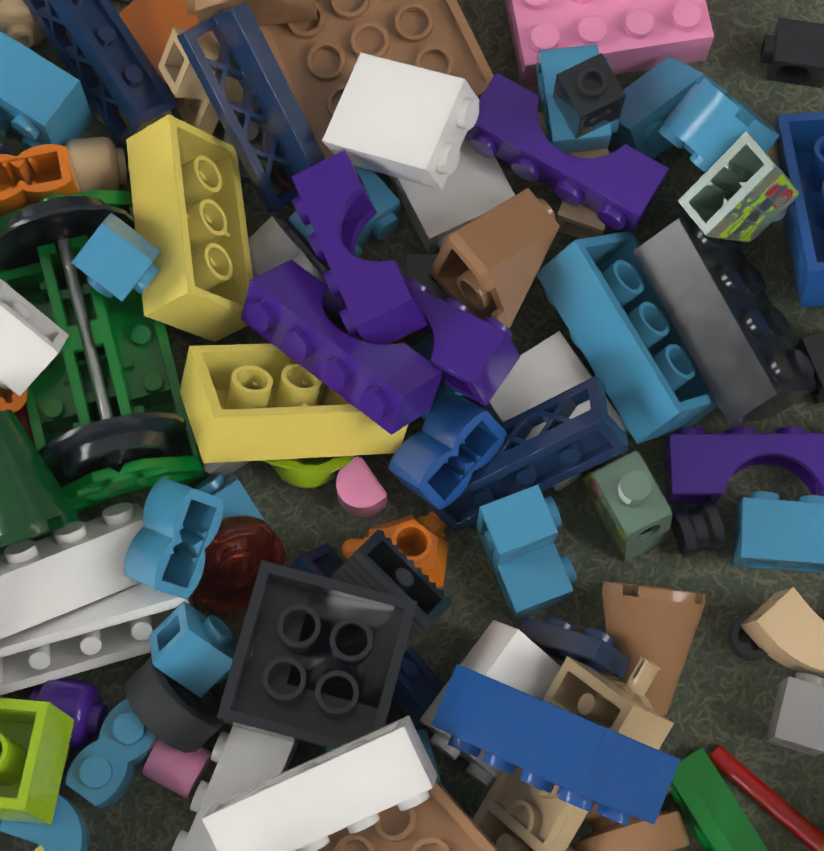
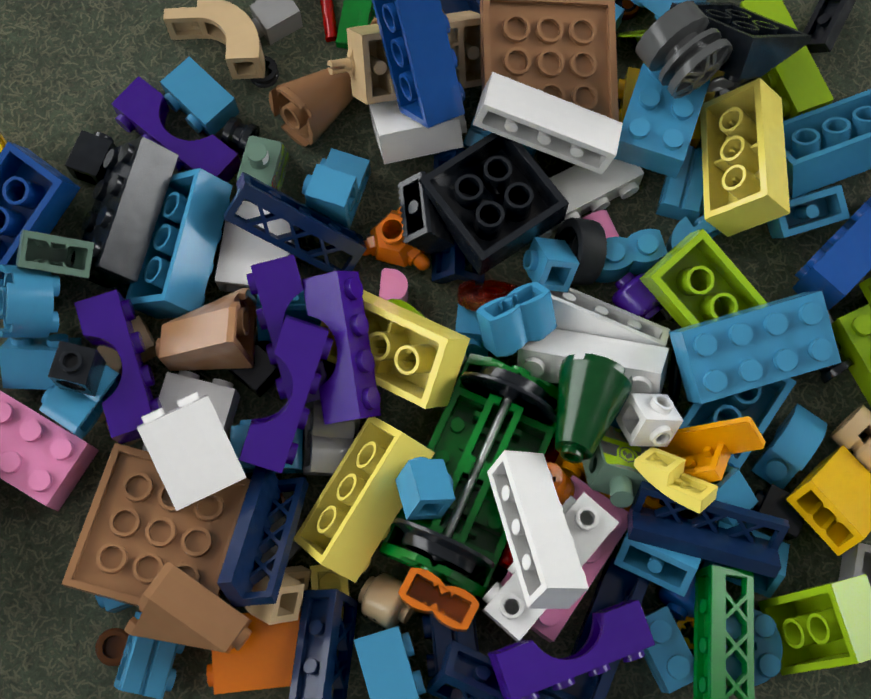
camera: 140 degrees left, 0 degrees up
(448, 449) = (333, 252): blue brick -> none
(591, 648) = (351, 110): dark blue plate -> none

